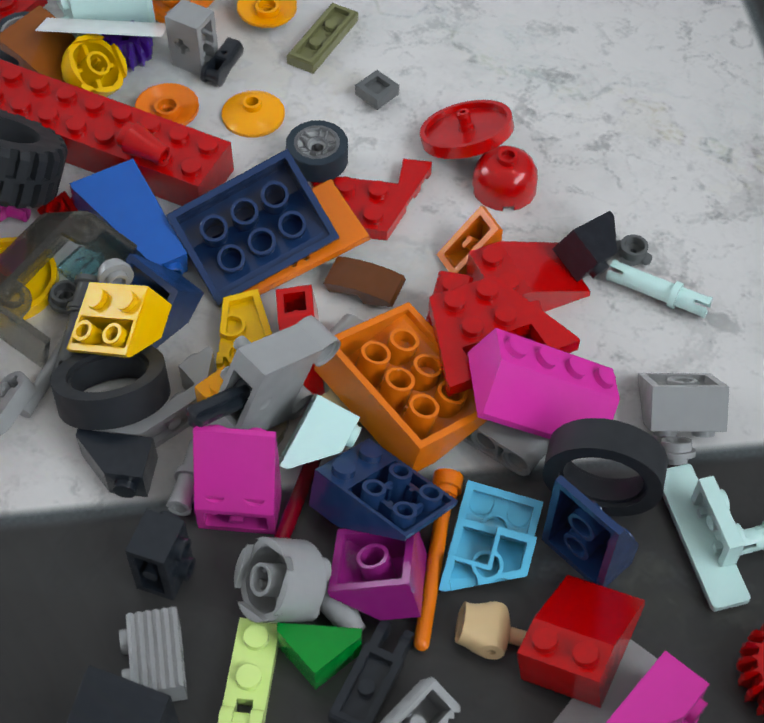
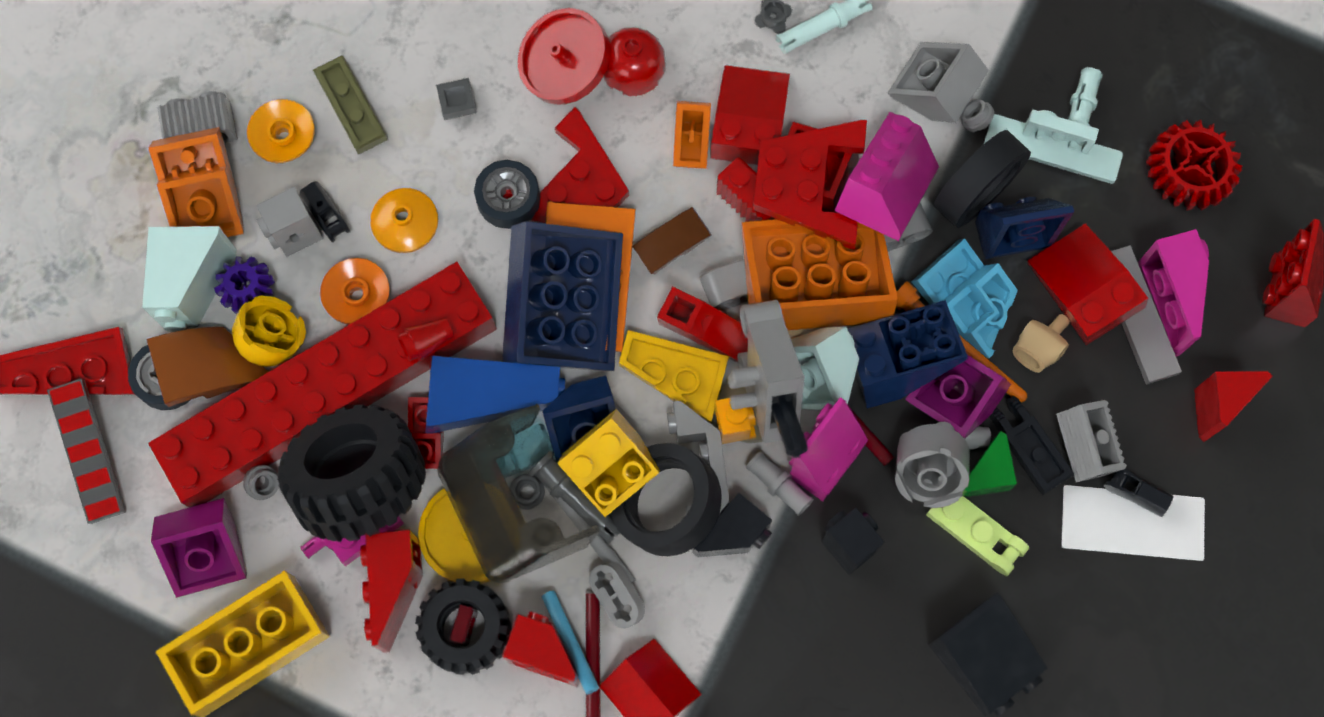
camera: 55 degrees left, 20 degrees up
(102, 27) = (230, 296): white sticker -> none
(115, 272) = (558, 438): light grey plate -> none
(155, 651) = (926, 590): light grey brick -> none
(589, 247) = (755, 45): black slope -> none

